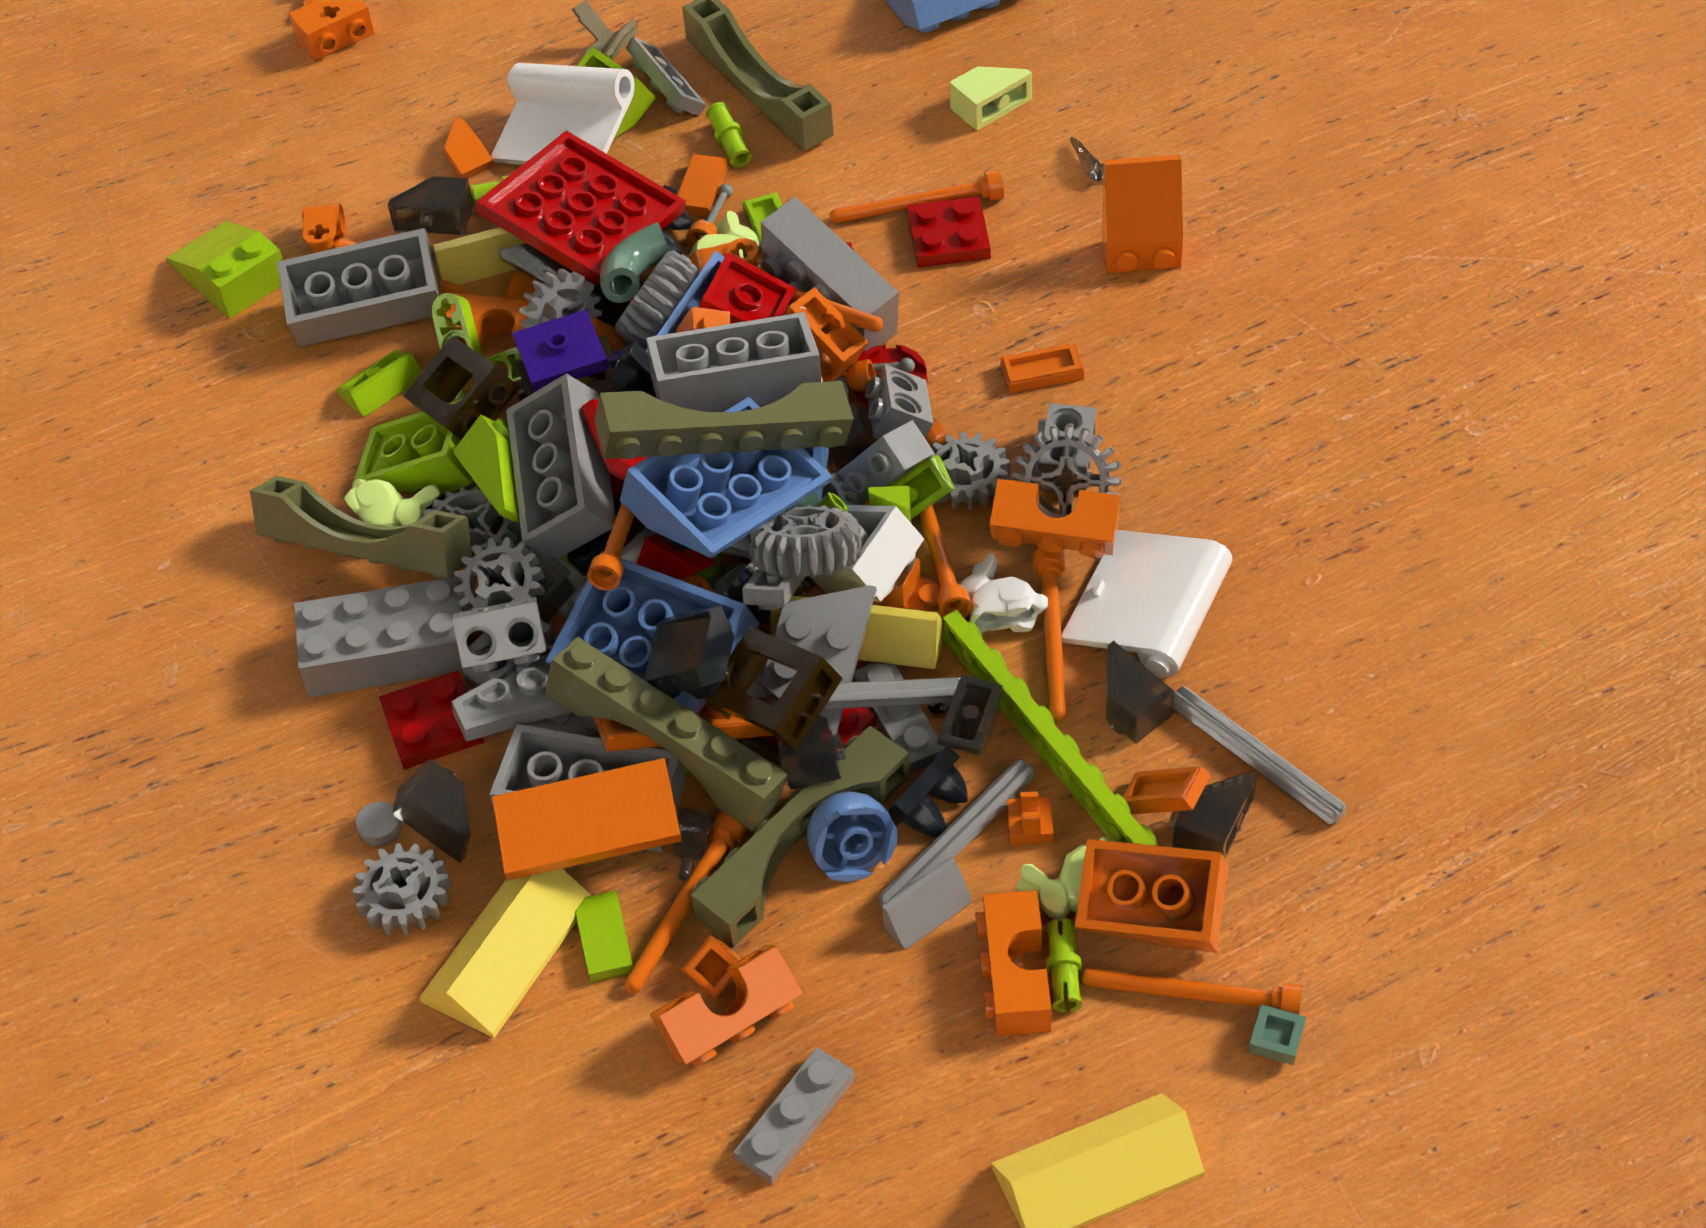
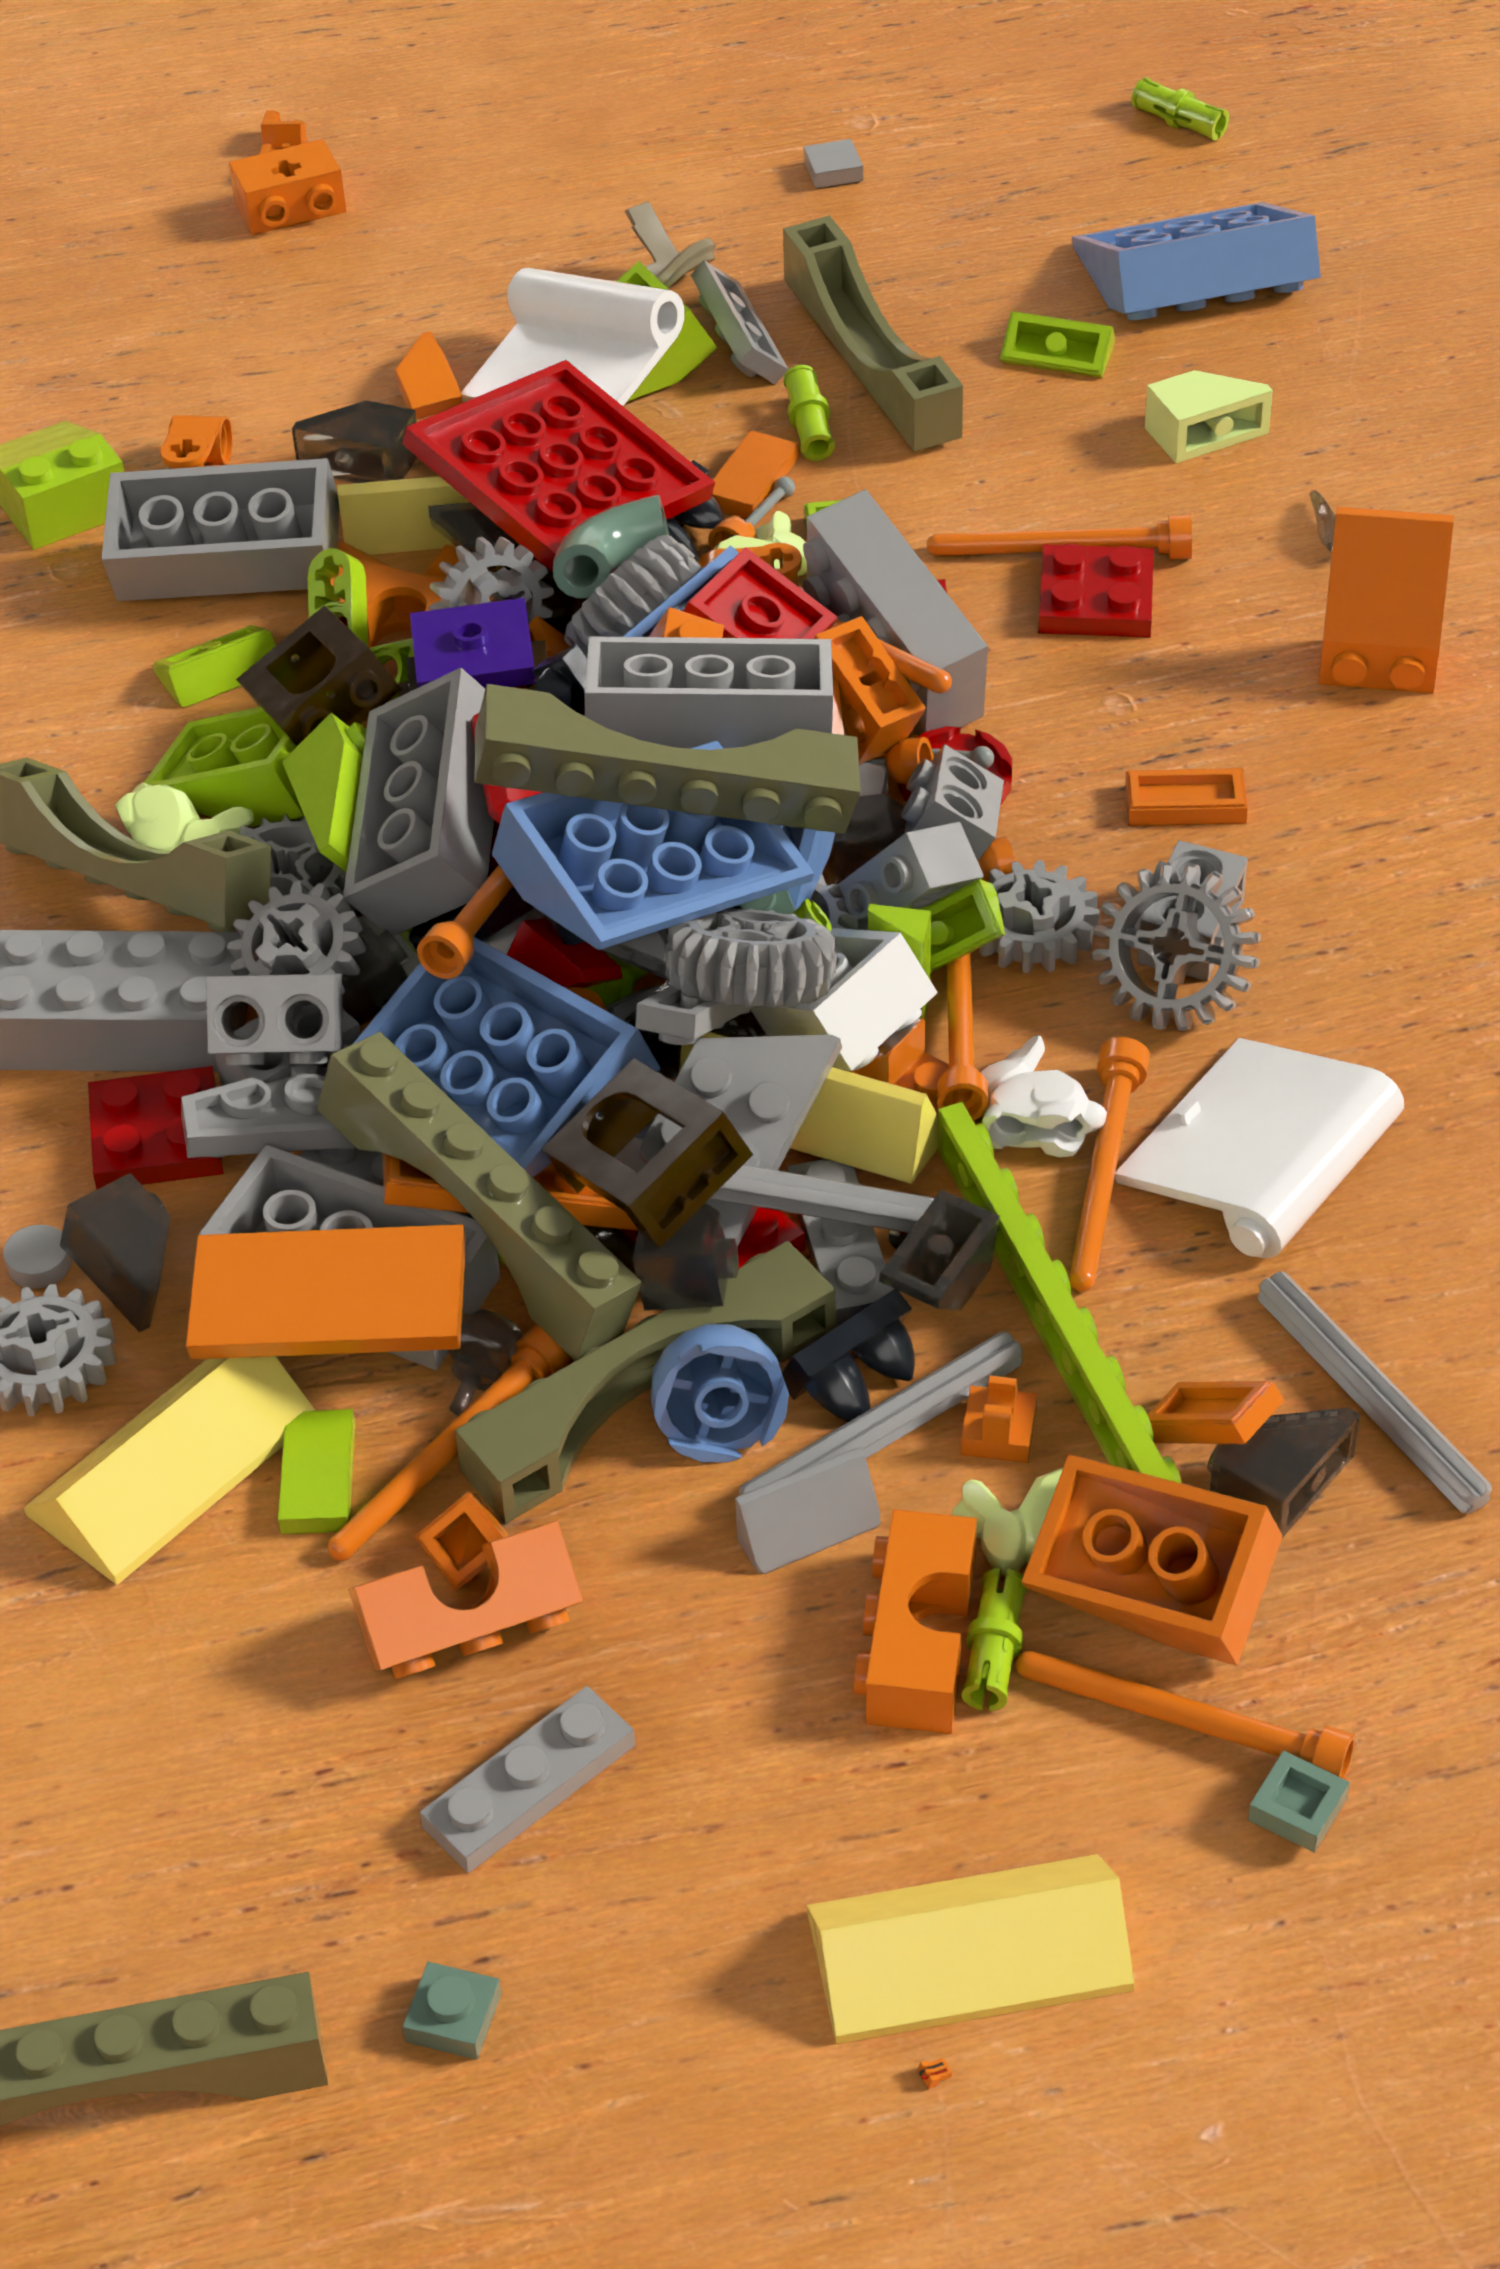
camera: 10 degrees right, 5 degrees down
(691, 653) = (540, 1083): black slope -> none
(879, 58) = (1057, 344): none -> lime slope
(1088, 528) = (1187, 1019): orange arch -> none
(1134, 696) = (1203, 1273): clear smoke slope -> none

